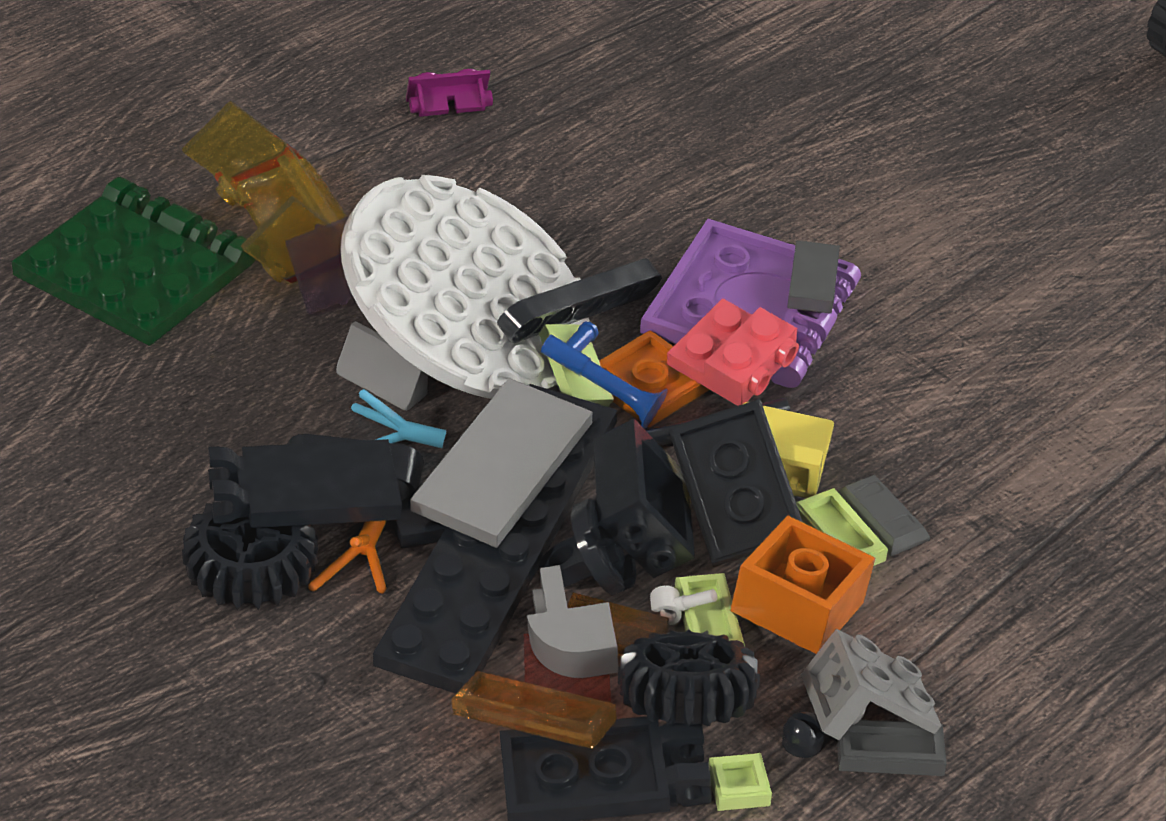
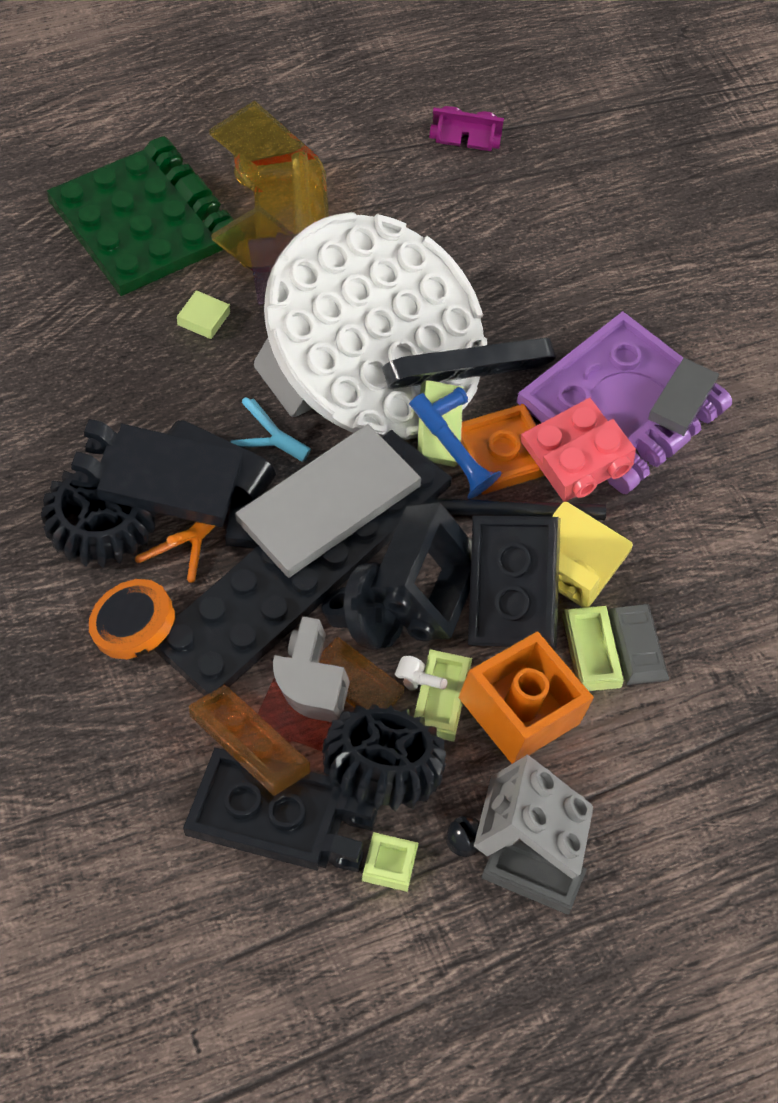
camera: 20 degrees right, 15 degrees up
(256, 337) = (203, 314): none -> yellowish green tile
(343, 637) = (131, 618): none -> tile

